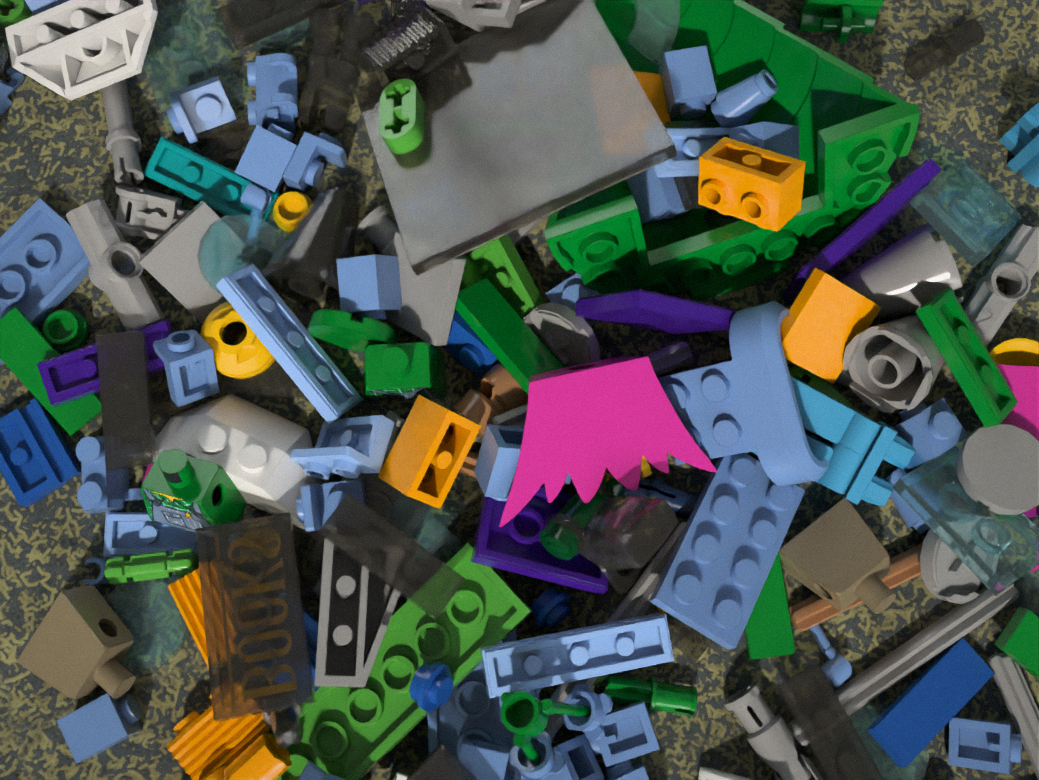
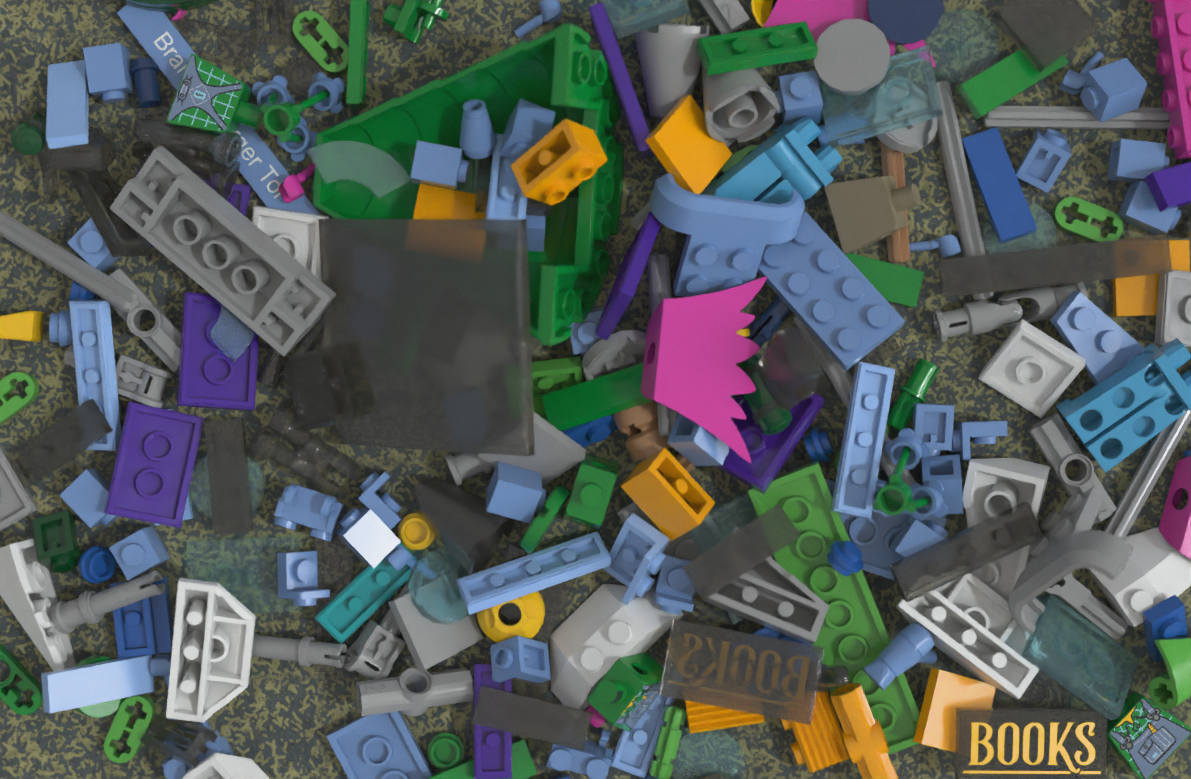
camera: 70 degrees left, 10 degrees up
(401, 116) = (384, 407): bright green beam -> none

